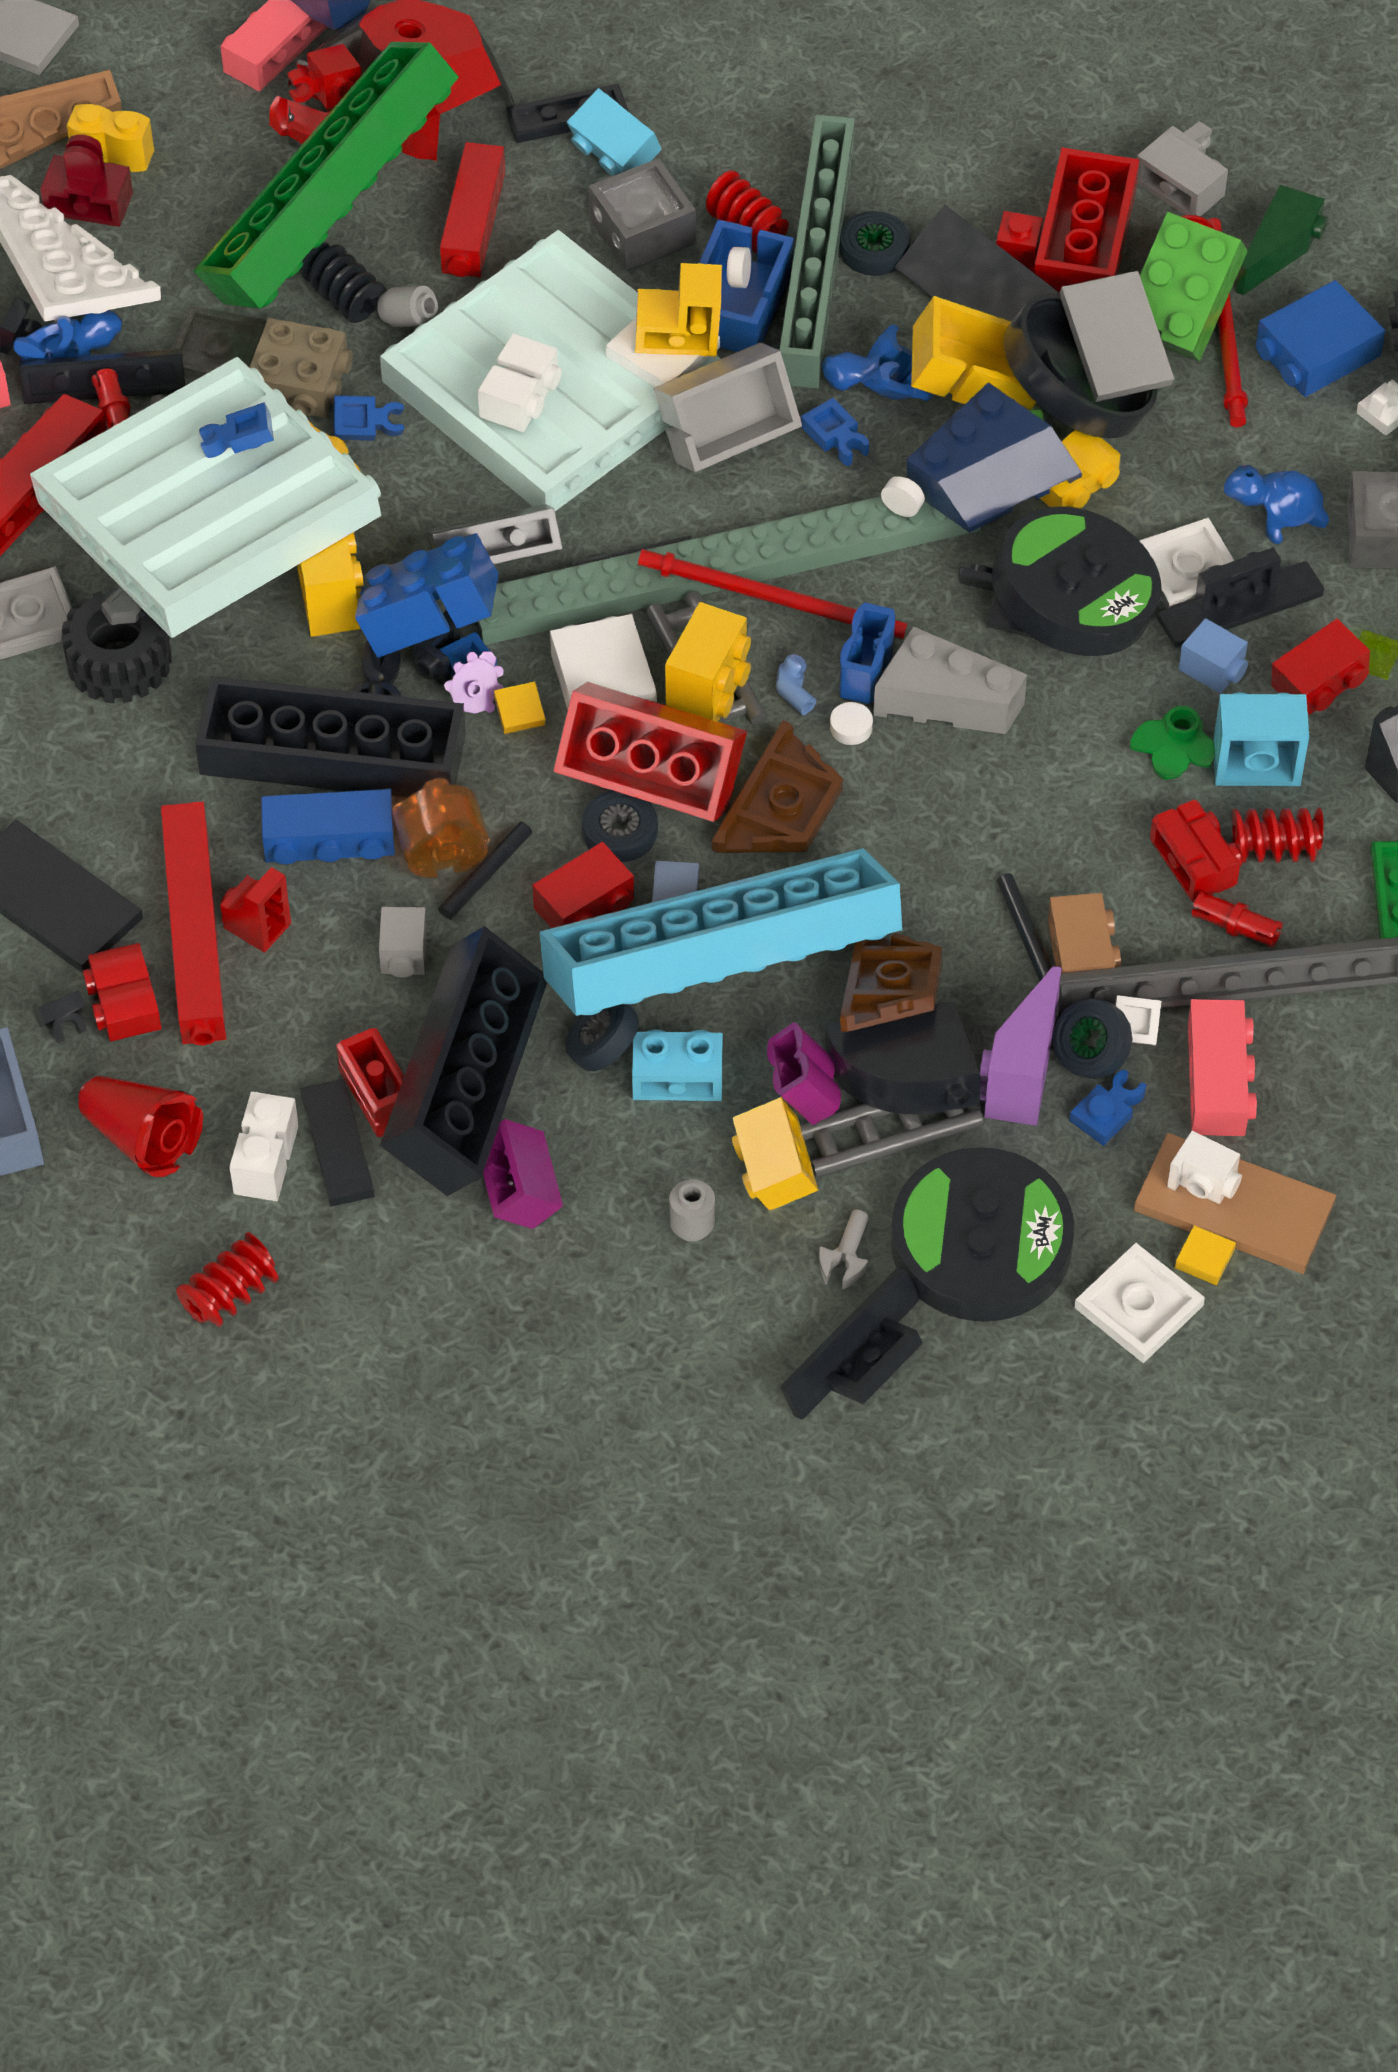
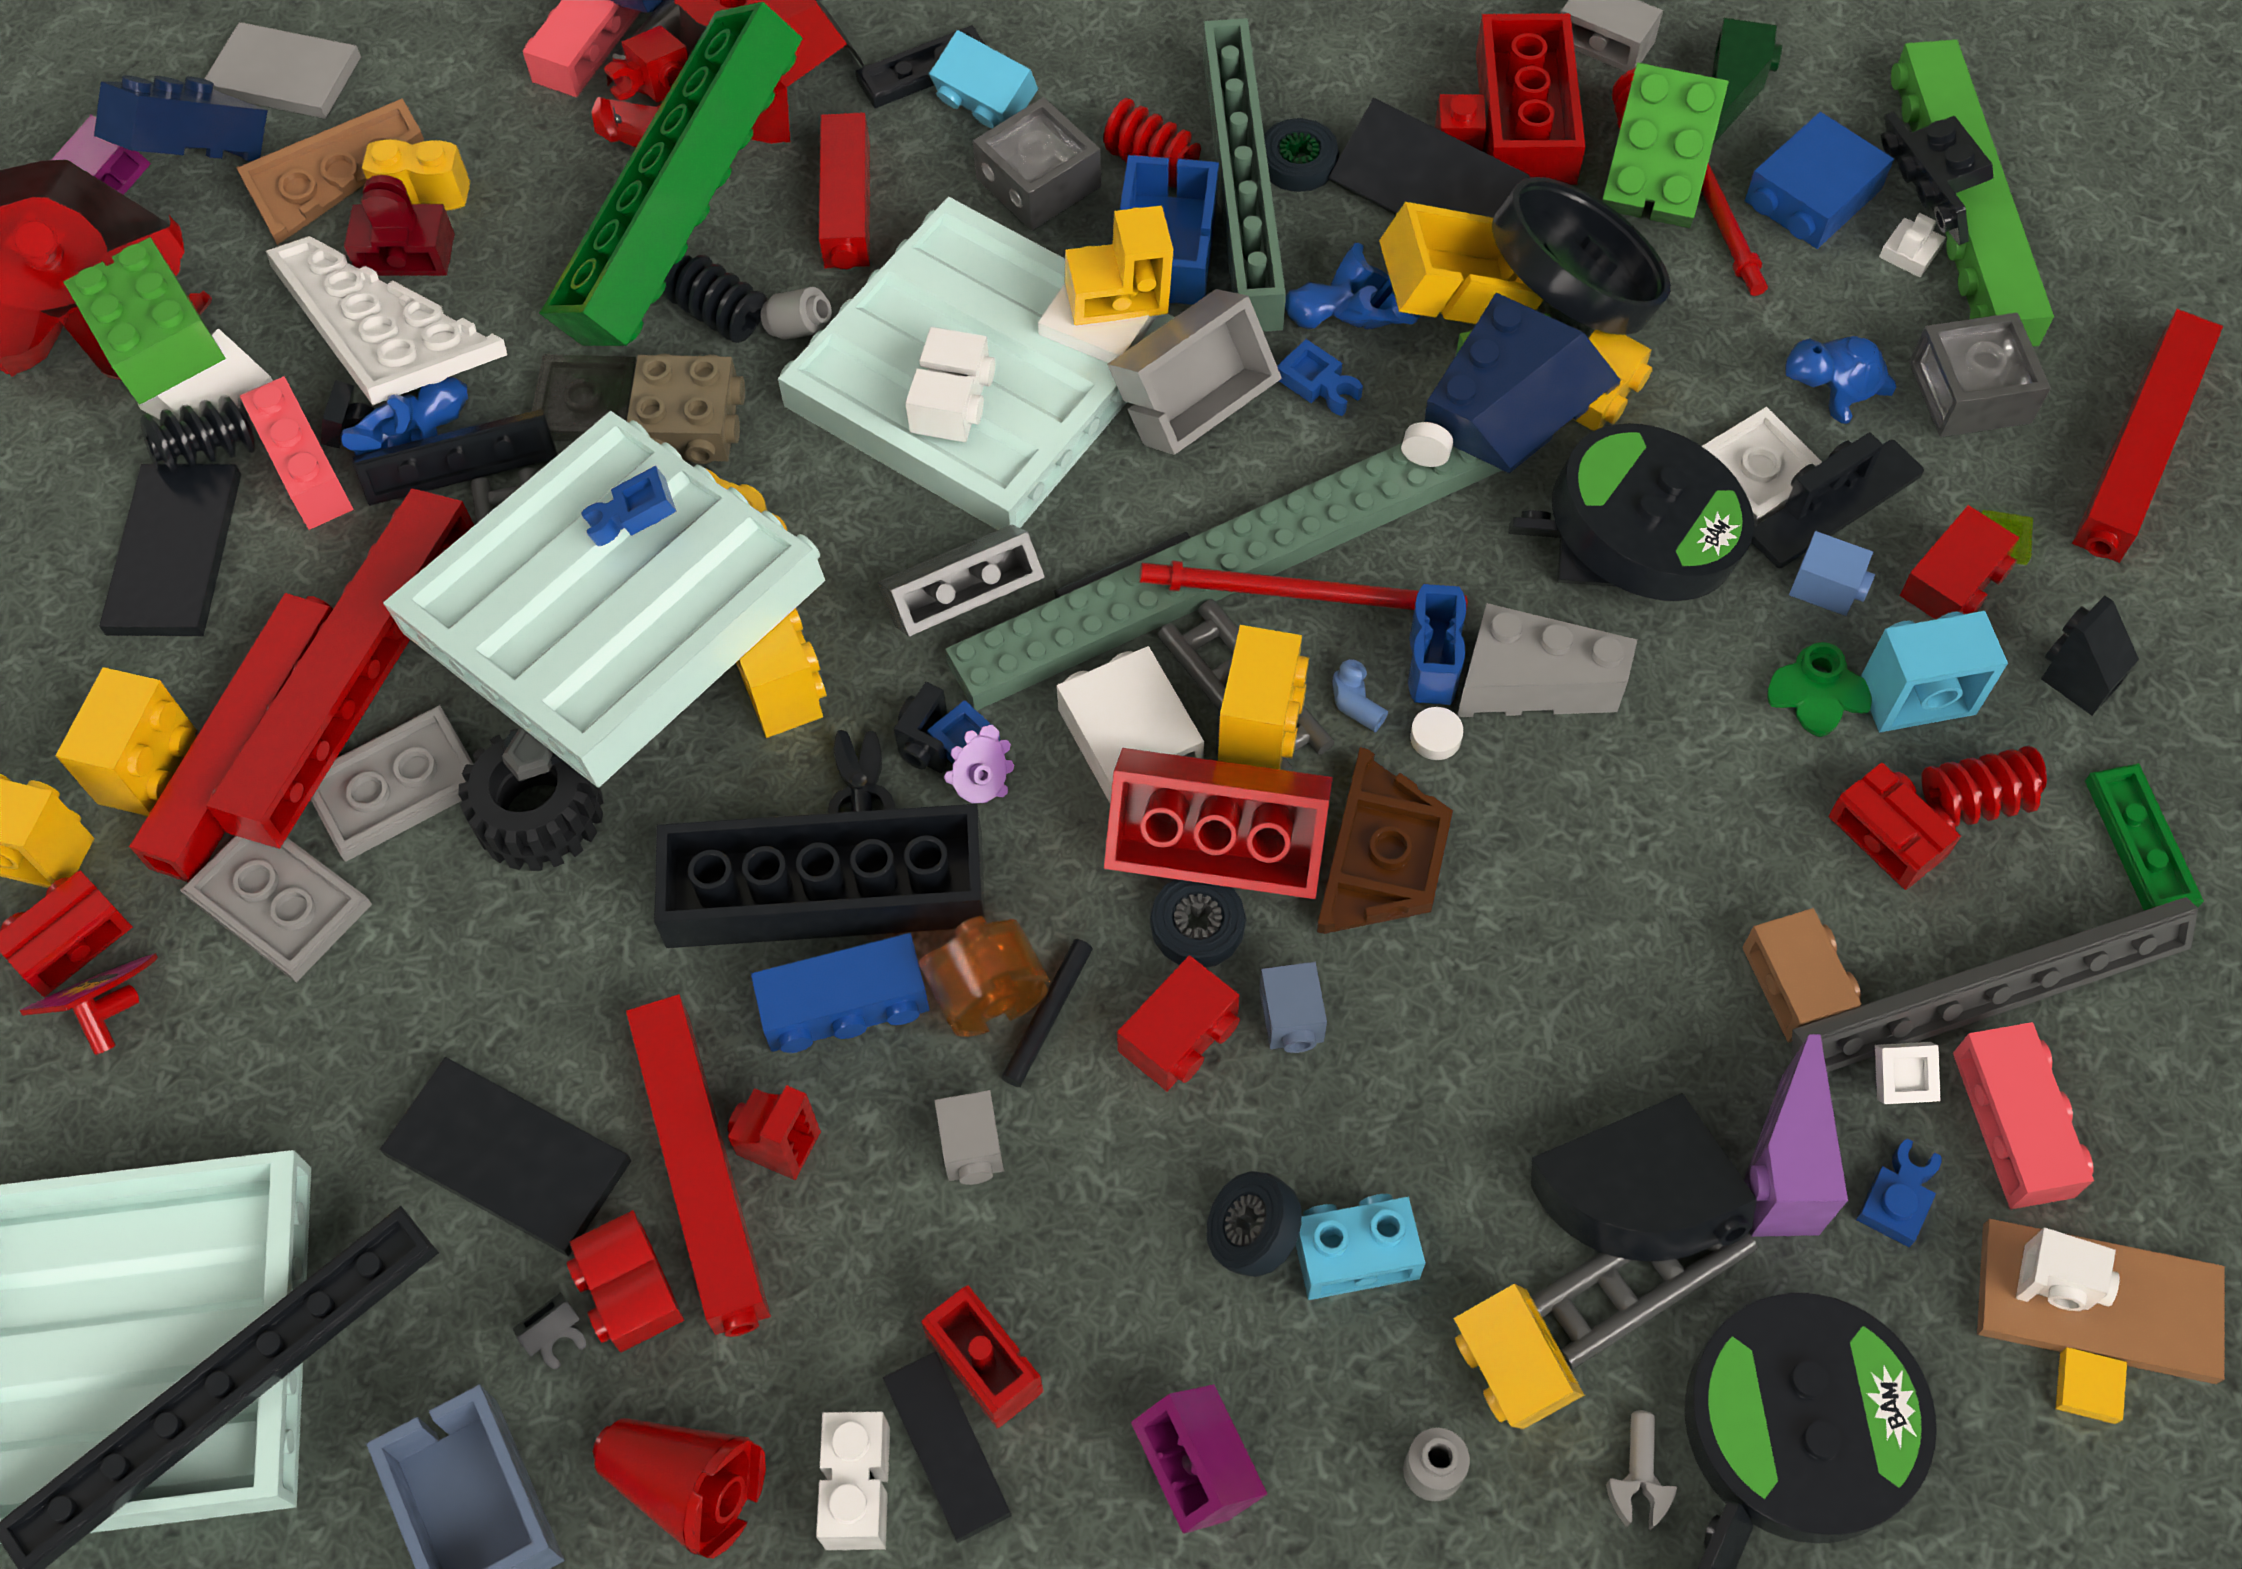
camera: 10 degrees left, 5 degrees up
(112, 401) = (472, 488): red pin -> none
(358, 418) = (768, 457): blue plate -> none
(401, 598) = (868, 677): blue piece -> none
(465, 1062) = (1095, 1321): black brick -> none
(519, 707) = (1039, 786): yellow tile -> none
(720, 931) = (1369, 1062): medium azure brick -> none
(739, 267) = (1170, 200): white tile -> none
(803, 1074) = (1526, 1236): magenta brick -> none
(890, 981) = (1595, 1079): reddish brown wing -> none
(1024, 925) = (1725, 967): black bar -> none
(1074, 1029) = (1892, 1116): black bush -> none
(1116, 336) = (1613, 214): light grey tile -> none
(1139, 1302) = (2034, 1474): white tile -> none
(1237, 919) = (1972, 905): red pin -> none

